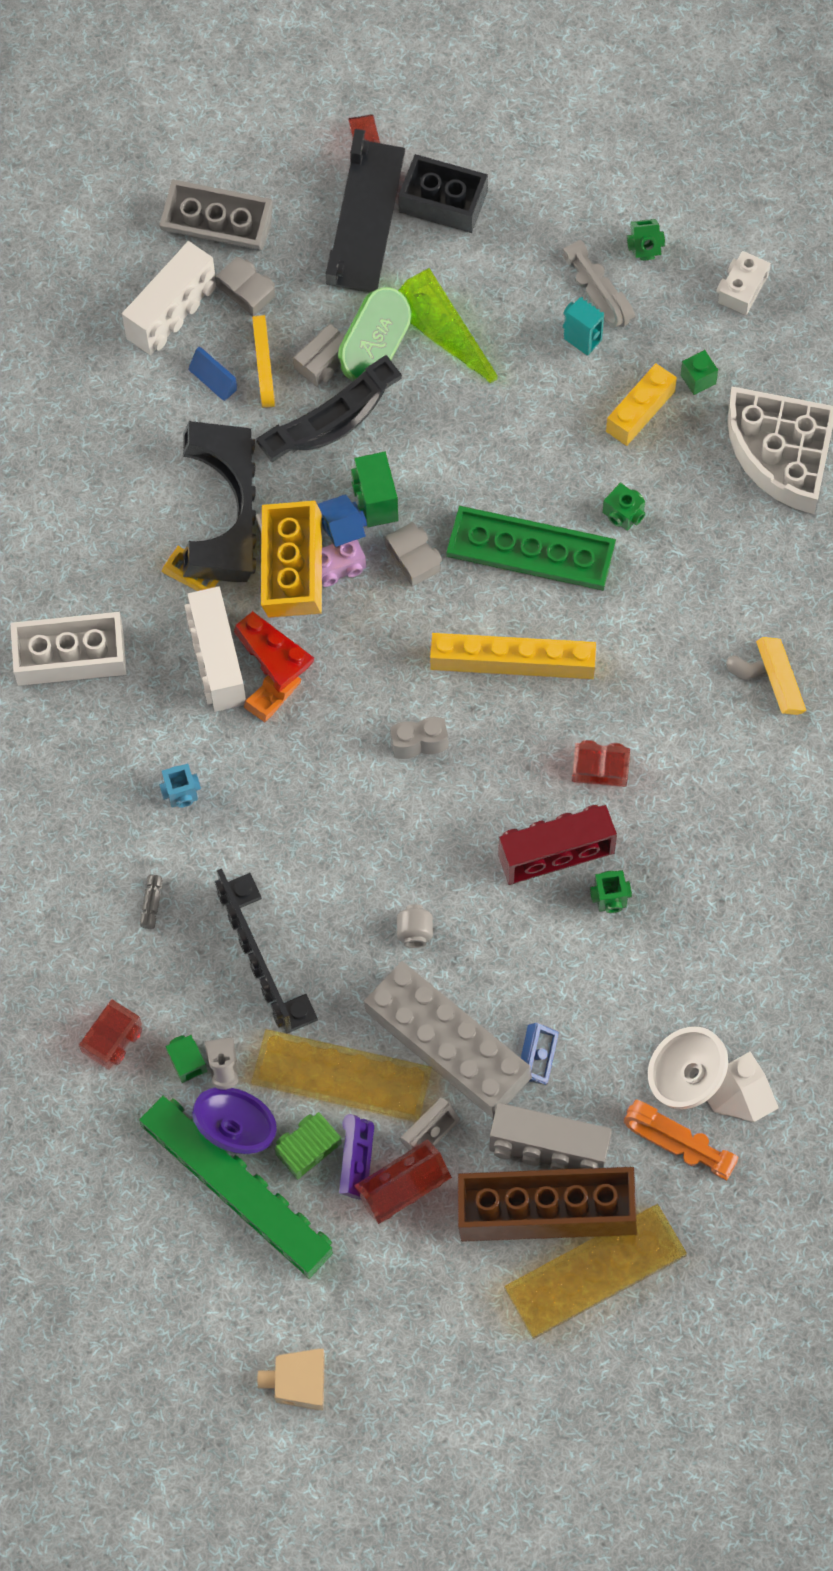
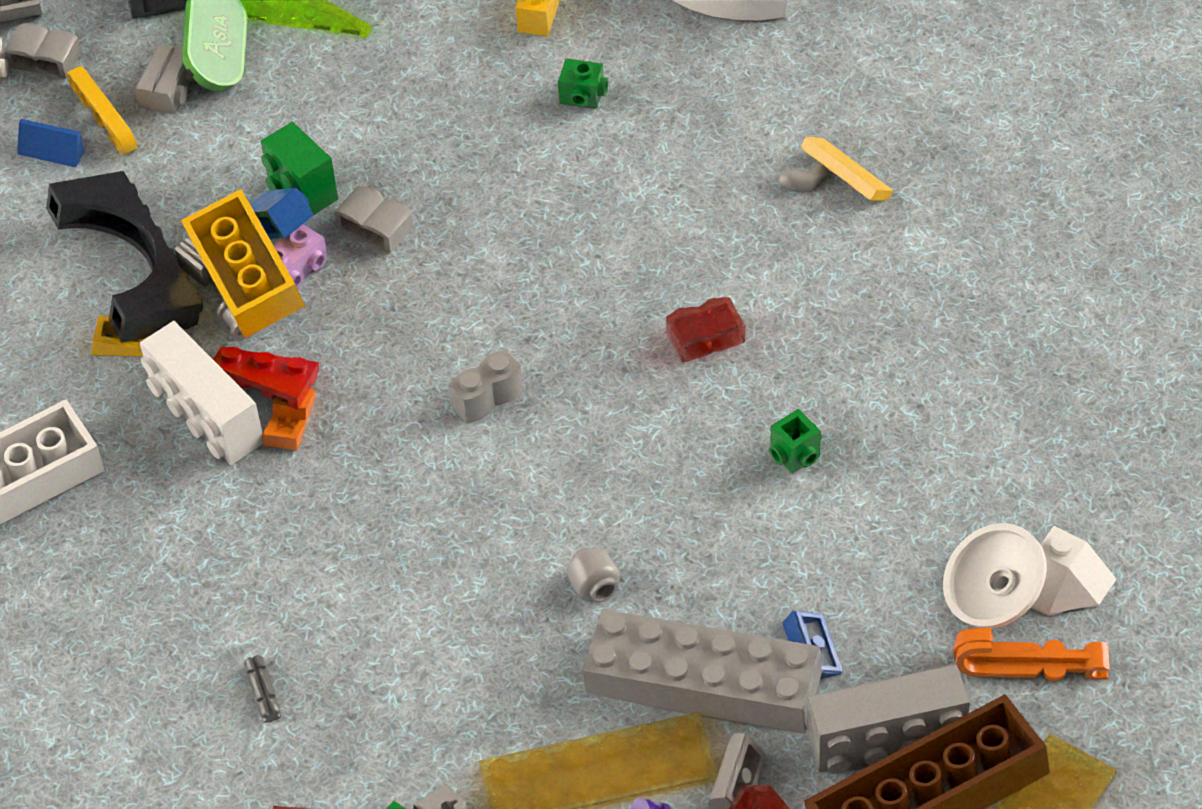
camera: 25 degrees left, 15 degrees down
(180, 786) = (232, 549): dark azure brick -> none
(235, 895) = (370, 638): black bracket -> none
(335, 416) = (213, 126): black piece -> none
(513, 656) = (544, 266): yellow brick -> none
(531, 548) = (502, 163): green plate -> none
(557, 844) = (707, 419): dark red brick -> none

